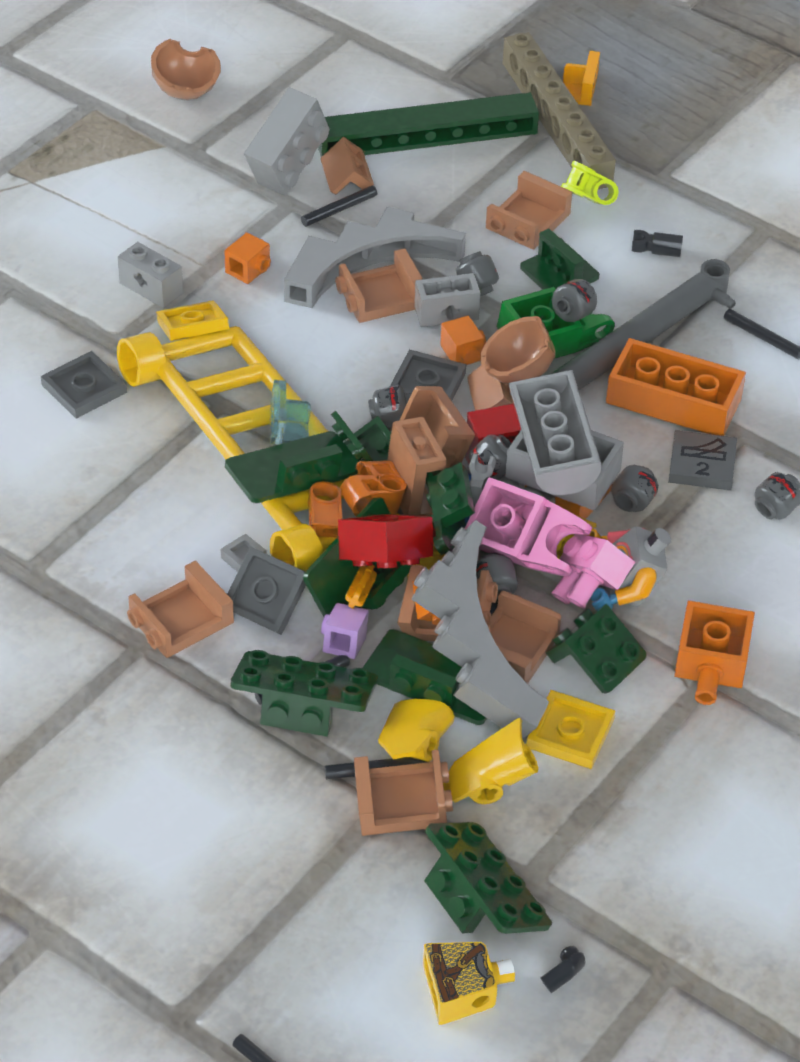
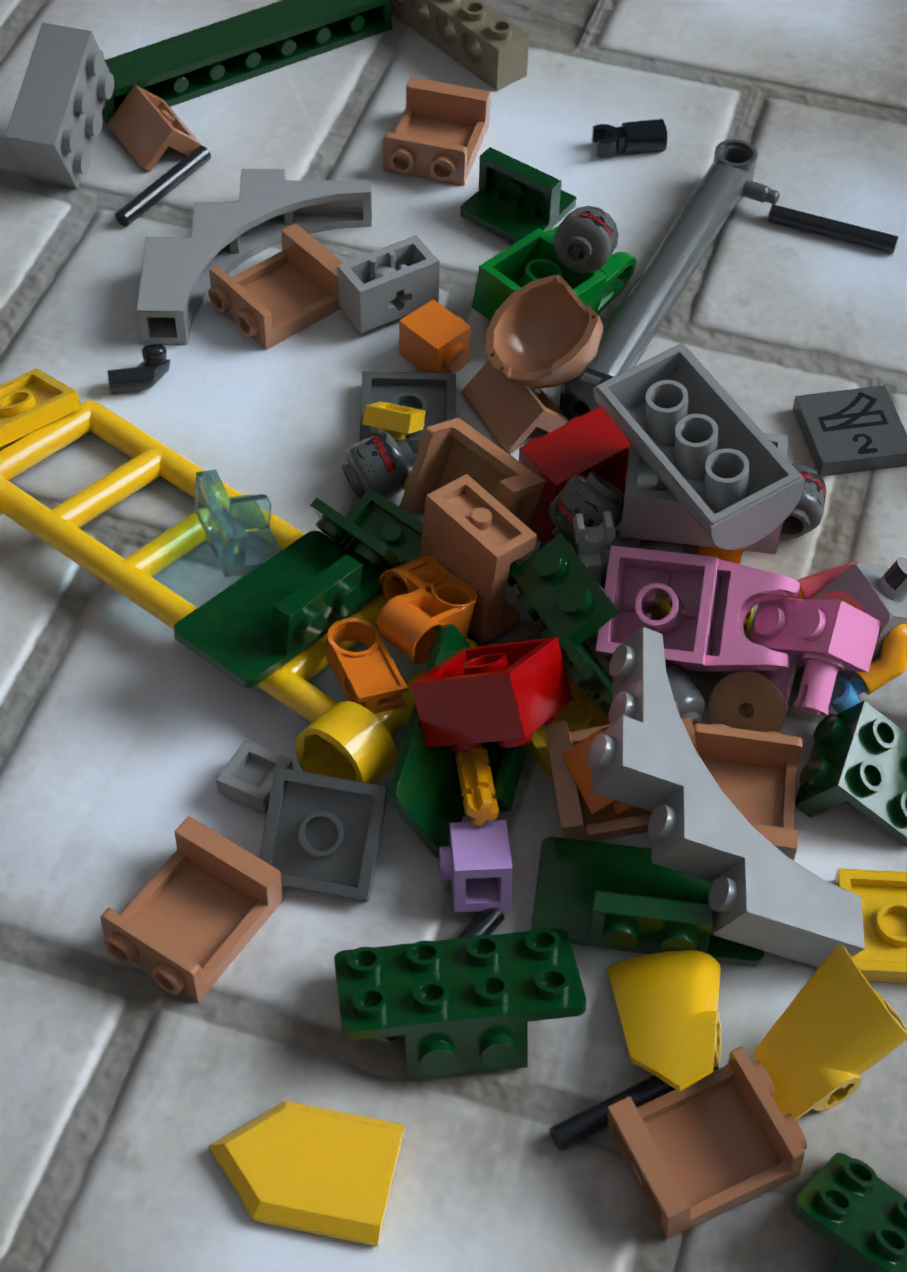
camera: 20 degrees left, 5 degrees up
(193, 749) = (314, 1170): none -> yellow tile
(247, 258) = (63, 292): orange brick -> none
(276, 320) = (143, 376): none -> black arm
(409, 379) = (394, 419): none -> yellow plate
(483, 269) = (412, 221): dark grey head -> none
(543, 589) = (747, 702): none -> medium nougat piece
(585, 183) = (504, 74): neon yellow piece -> none
(675, 387) = (776, 332): orange brick -> none

